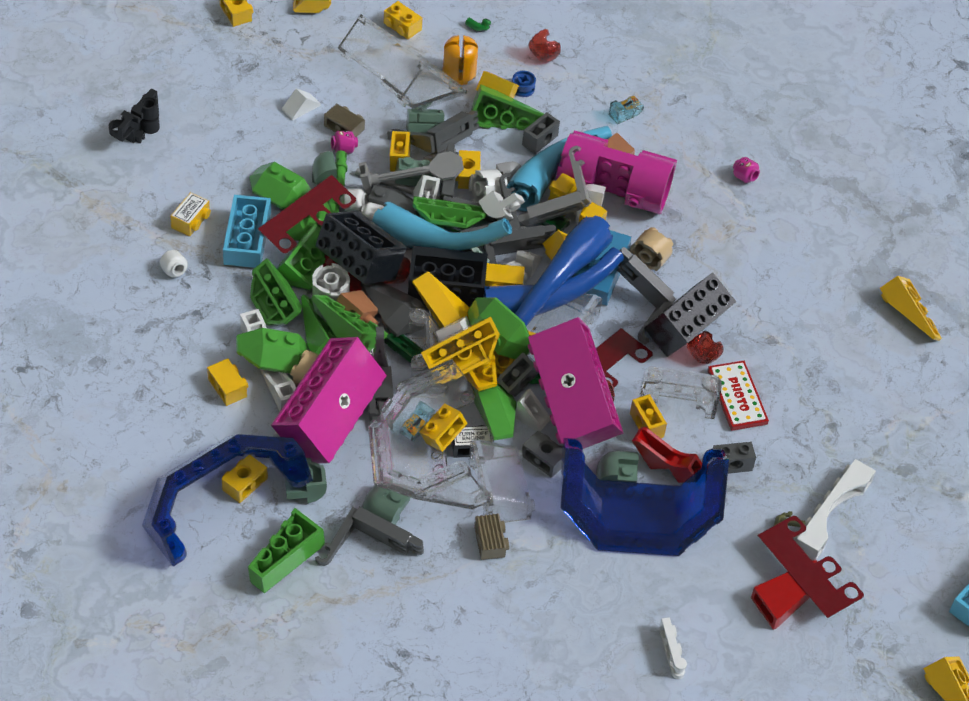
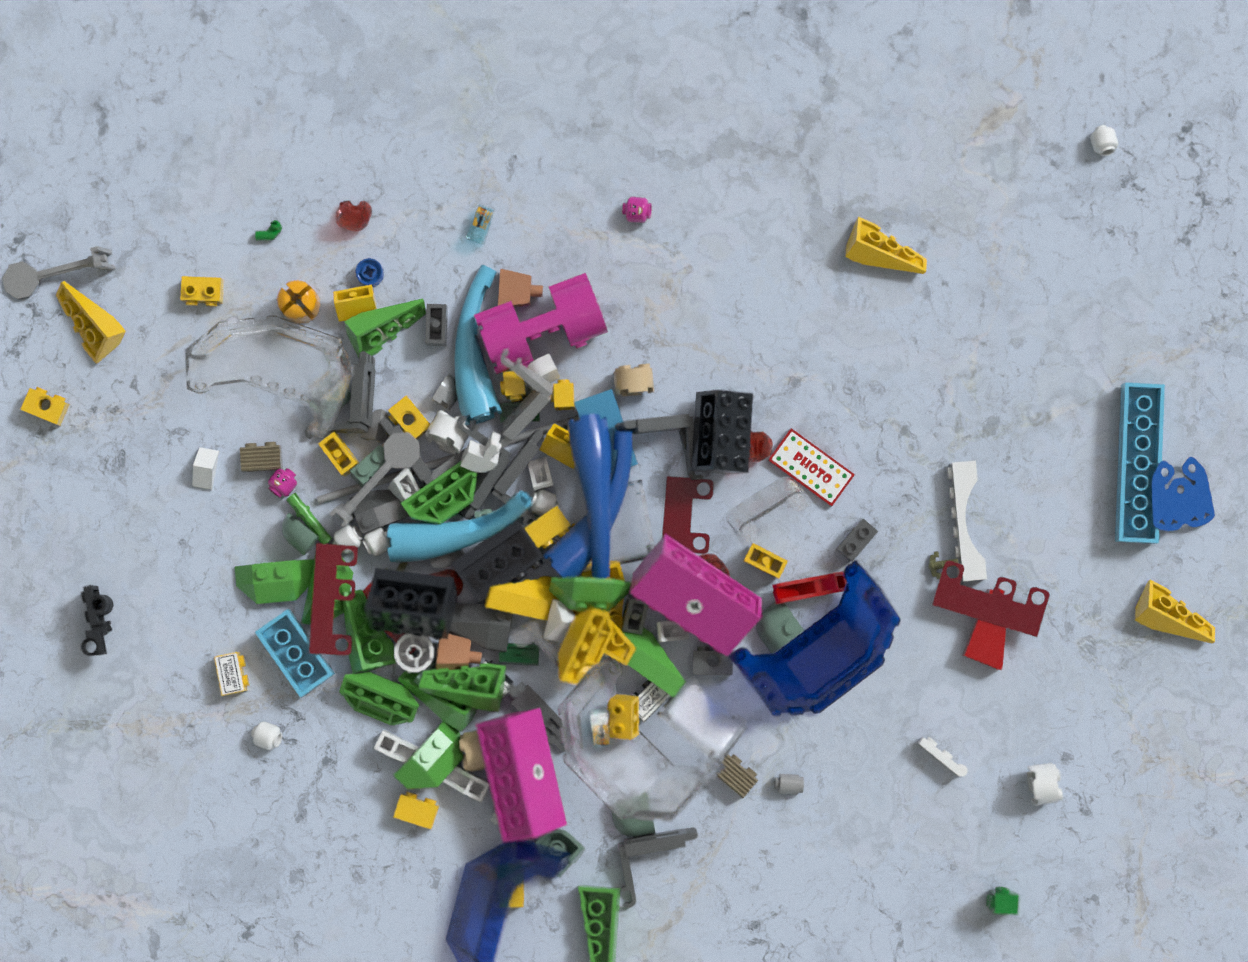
camera: 35 degrees left, 35 degrees up
(527, 574) = (789, 784): none -> light grey brick

